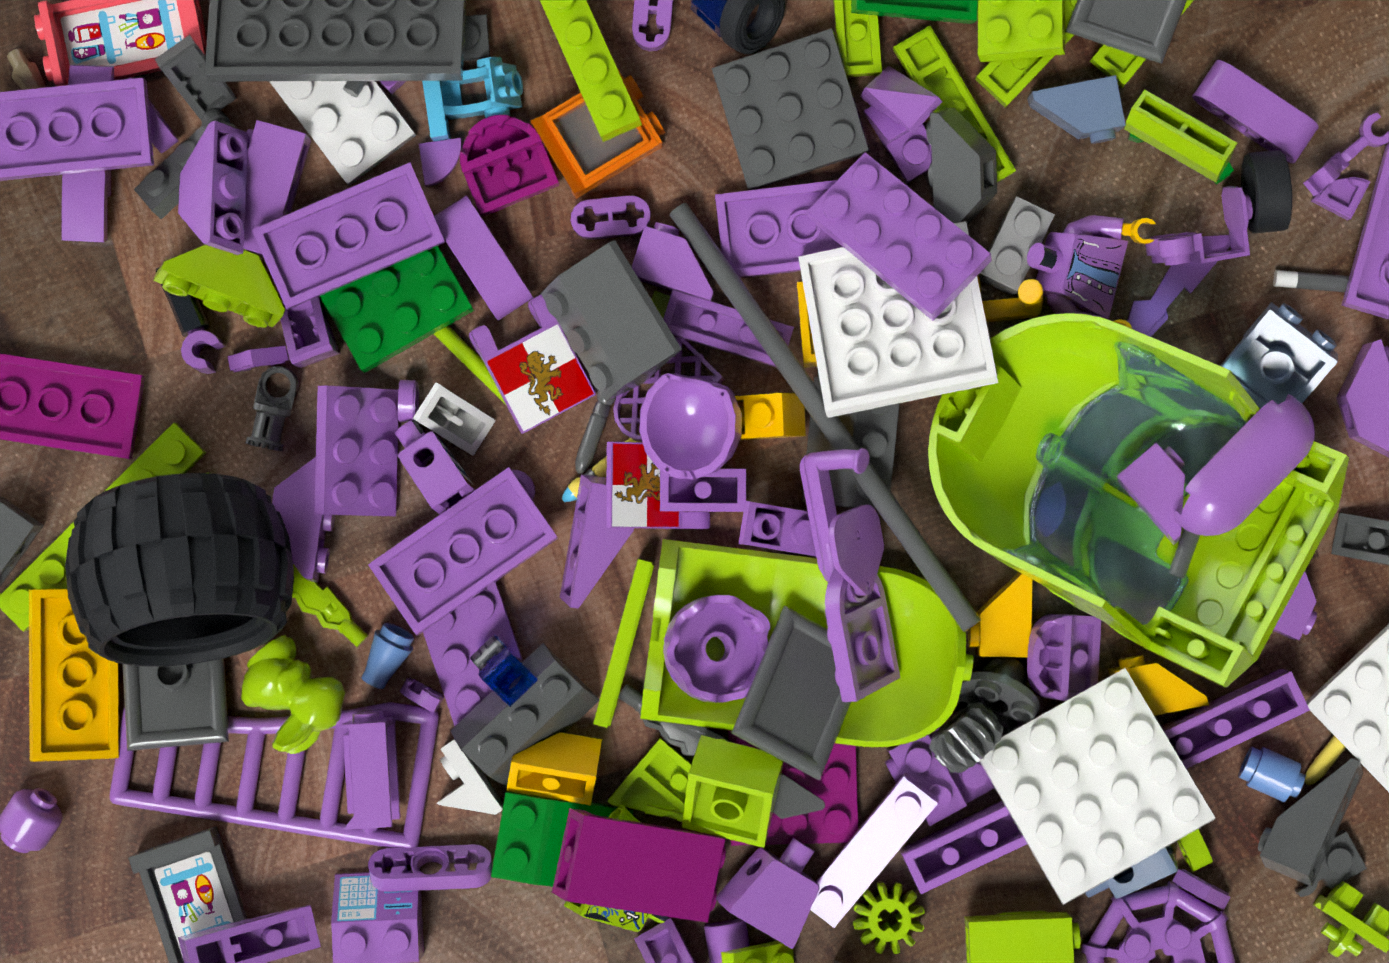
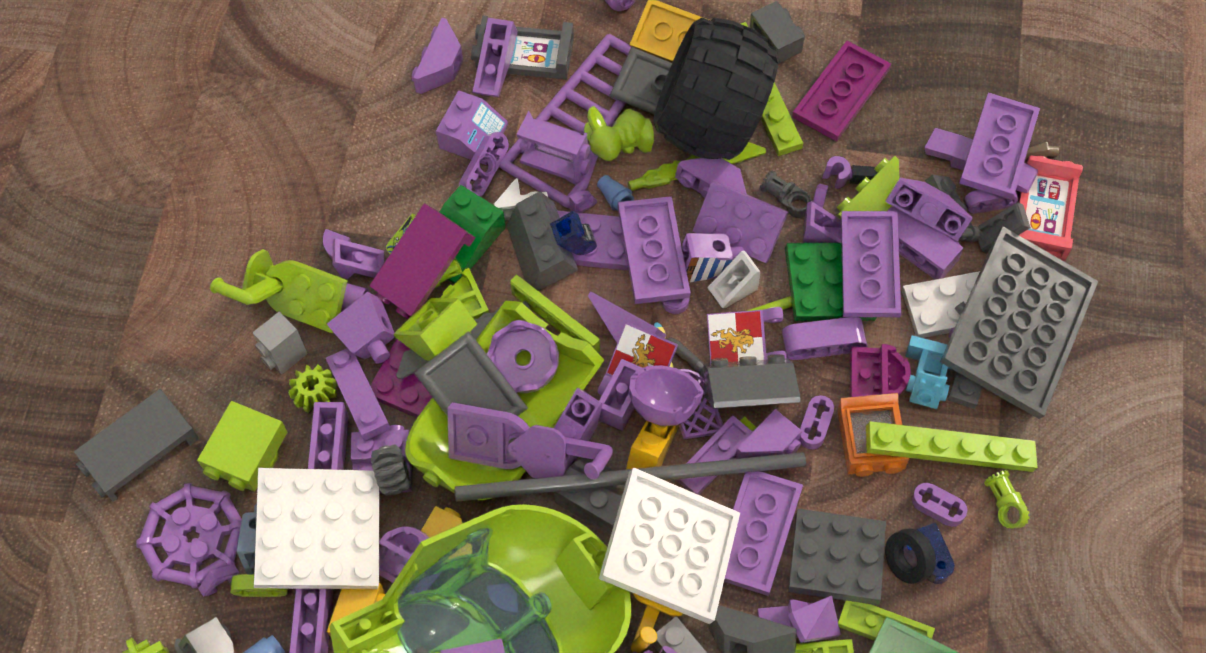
camera: 120 degrees right, 25 degrees down
(407, 400) = (761, 261): medium lavender tile -> none
(439, 159) = (896, 339): medium lavender tile -> none
(557, 768) = (501, 247): yellow slope -> none
(899, 236) = (723, 573): medium lavender plate -> none
(1003, 691) = (406, 508): dark grey plate -> none

